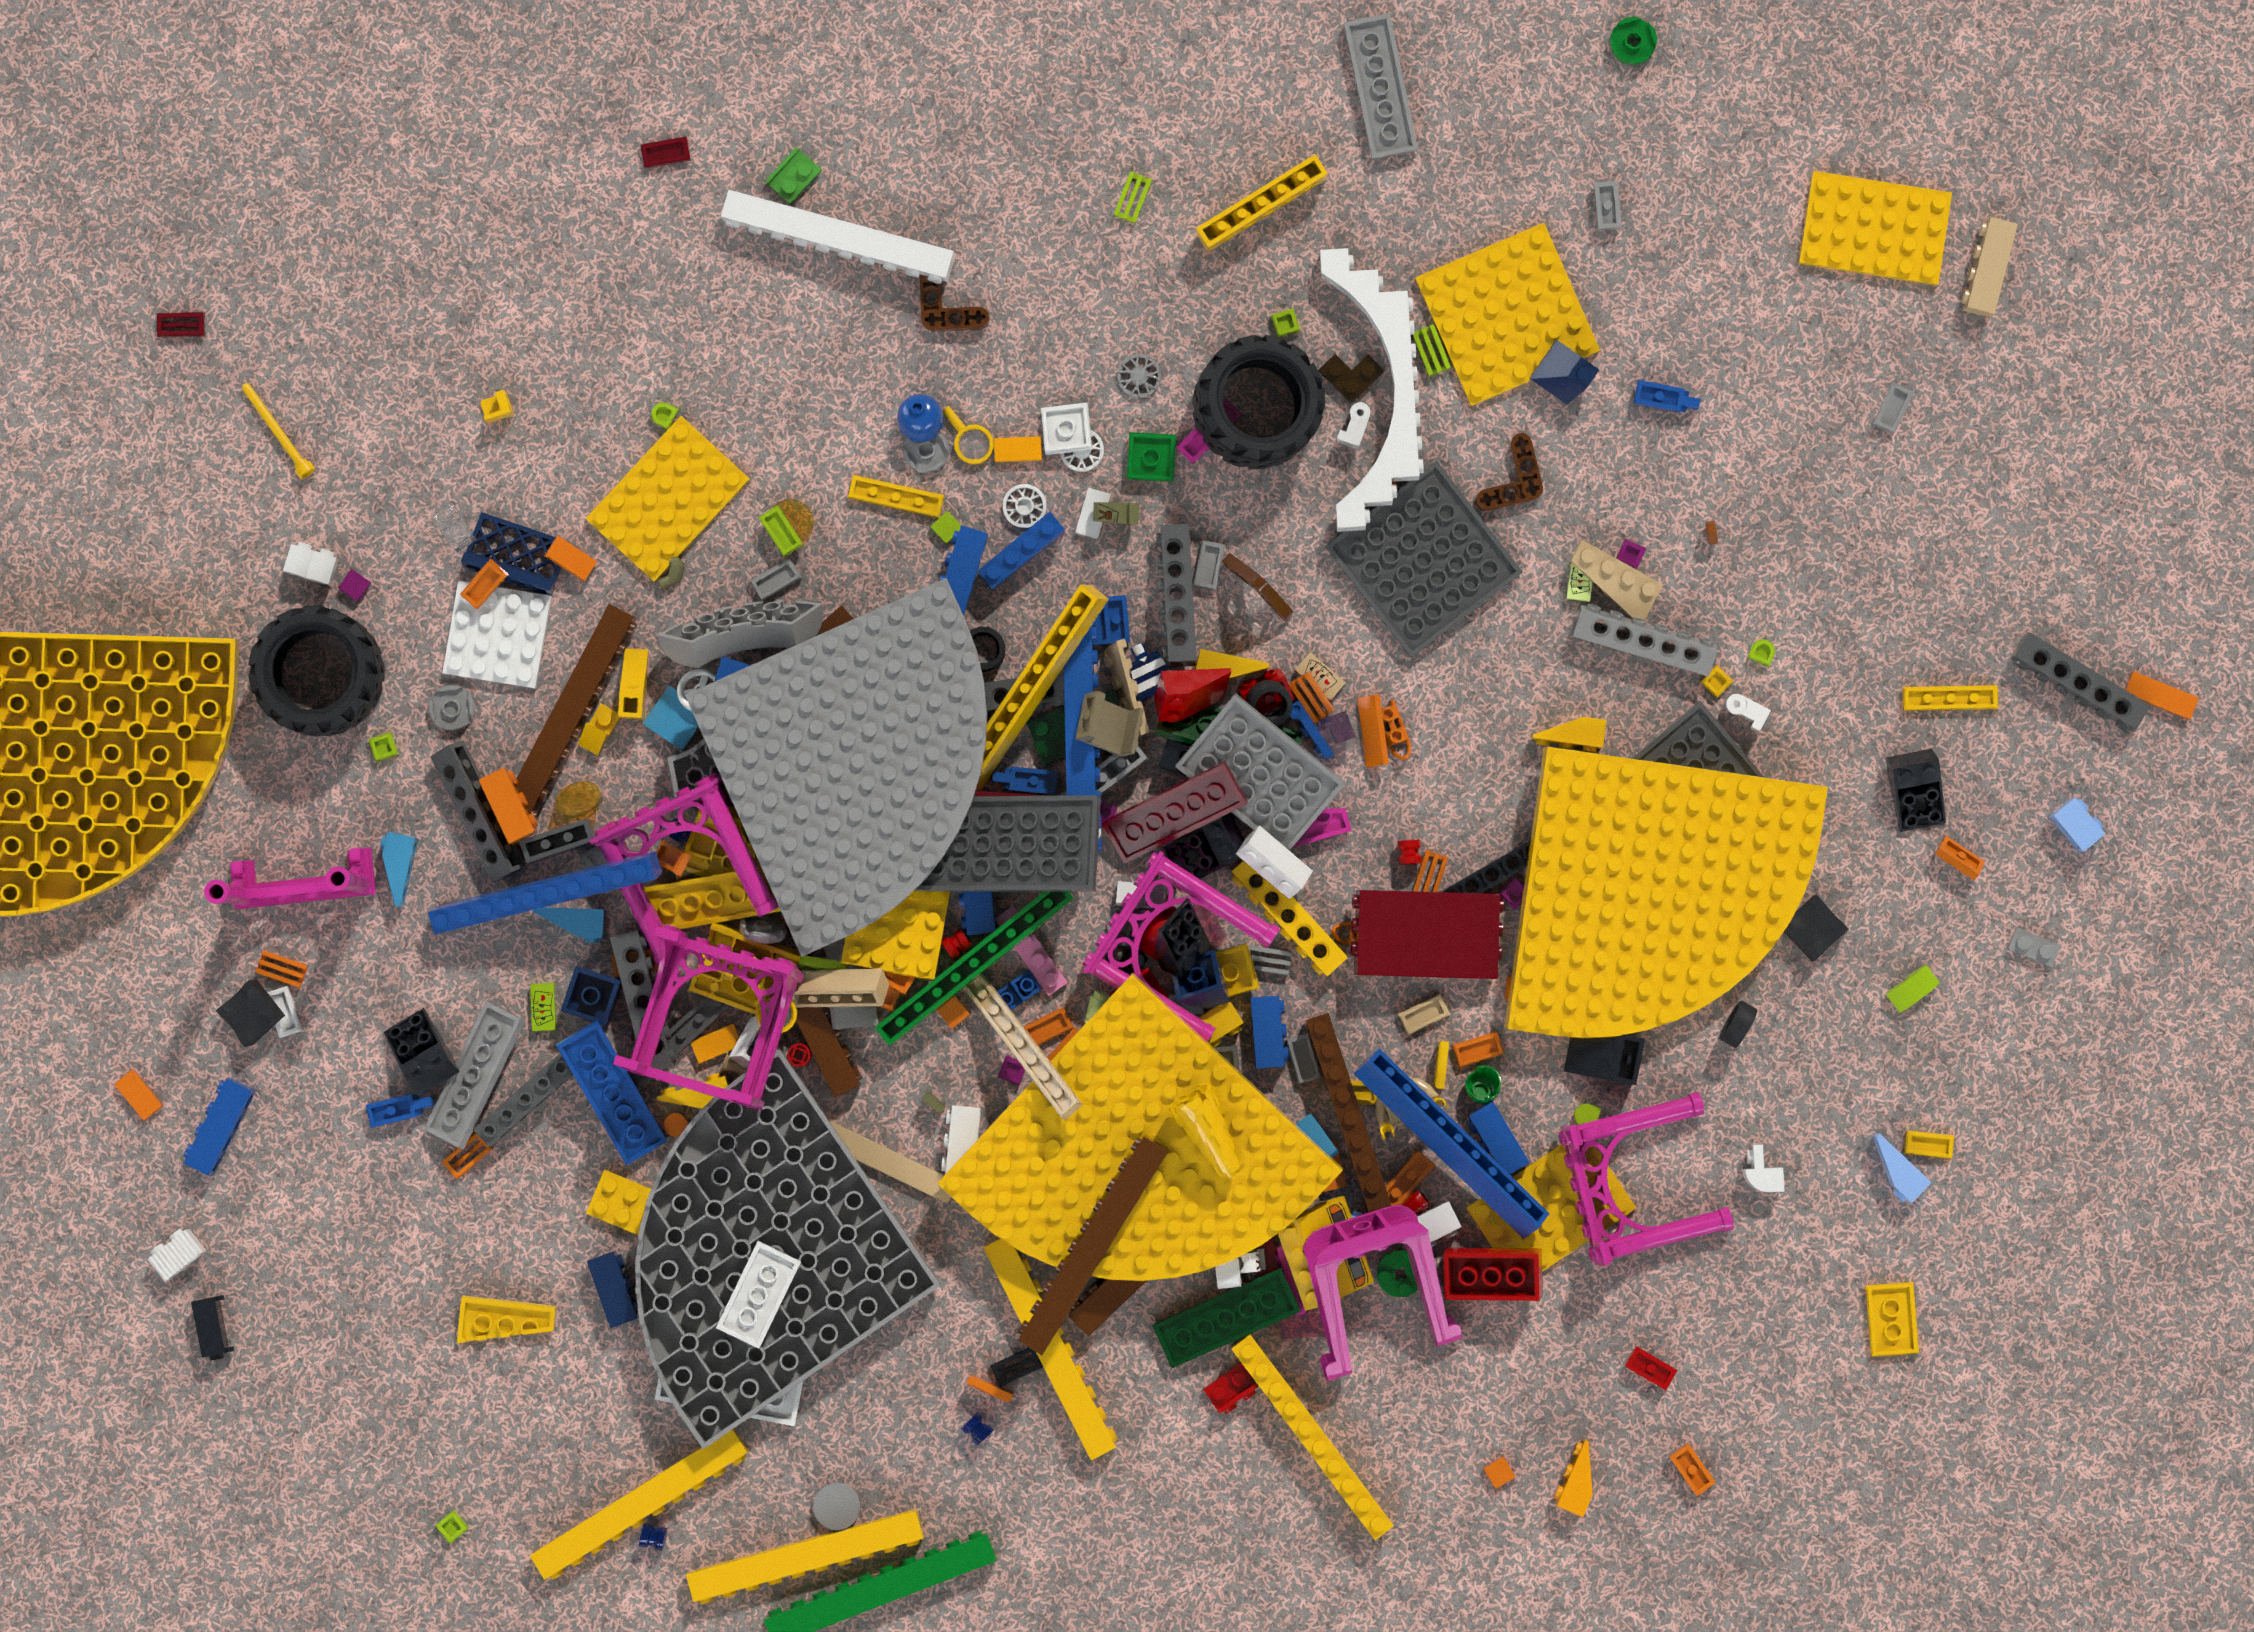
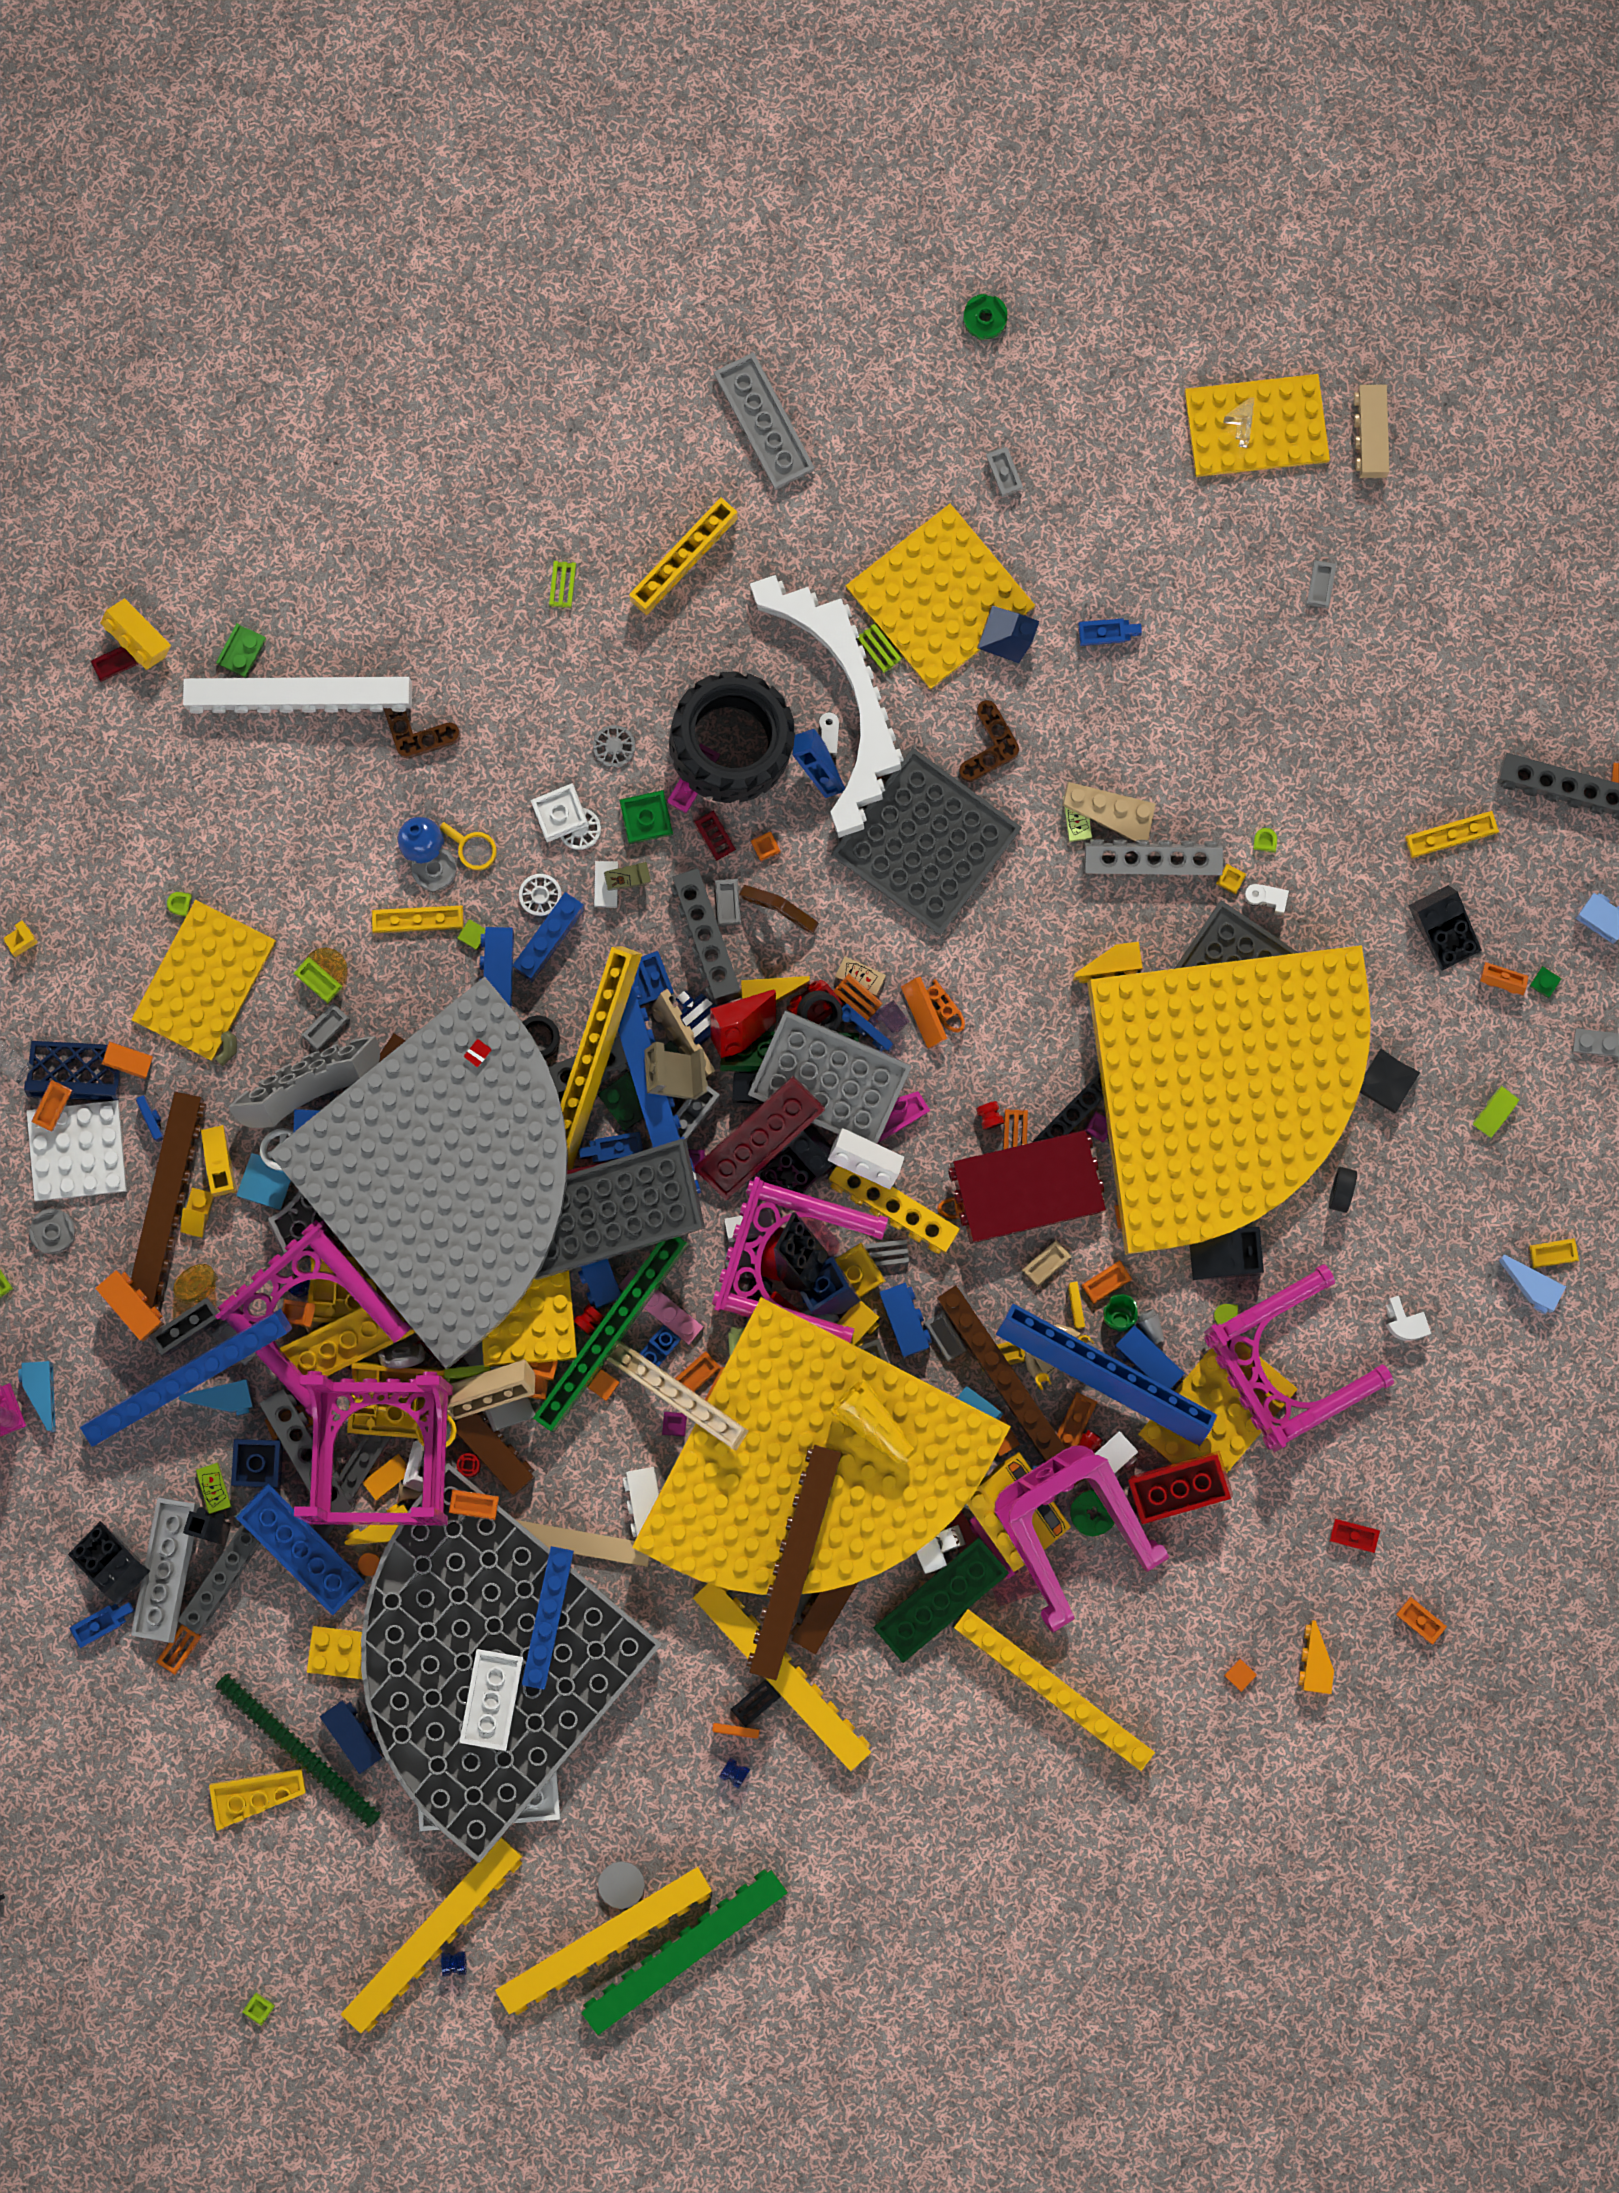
camera: 15 degrees left, 5 degrees down
(462, 784) = (101, 1321): dark grey brick -> none
(526, 1045) = (206, 1527): none -> black brick
(557, 1287) = (298, 1750): none -> dark green piece
(579, 623) = (151, 1118): none -> blue plate
(692, 130) = (135, 634): none -> yellow brick
(793, 1098) = (474, 1504): none -> orange tile
(835, 1229) = (547, 1617): none -> blue plate
(918, 653) = (477, 1053): none -> red sticker
(934, 1102) = (608, 1474): olive tile -> none
(1017, 449) = (519, 844): light orange tile -> none
(1208, 505) = (707, 839): none -> dark red slope
(1231, 1388) = (964, 1666): red bracket -> none
(1262, 519) = (765, 846): none -> orange tile
(1285, 323) = (736, 659): lime tile -> none
(1337, 451) = (817, 762): none -> blue slope
(1351, 382) = (813, 697): dark brown plate -> none
(1510, 1105) = (1150, 1324): none -> light grey cone
(1631, 553) = (1117, 783): magenta tile -> none
(1711, 532) = (1186, 743): dark orange tile -> none
(1863, 216) = (1242, 416): none -> clear slope
(1892, 1319) = (1567, 1426): yellow tile -> none
(2000, 872) = (1545, 982): none -> green plate

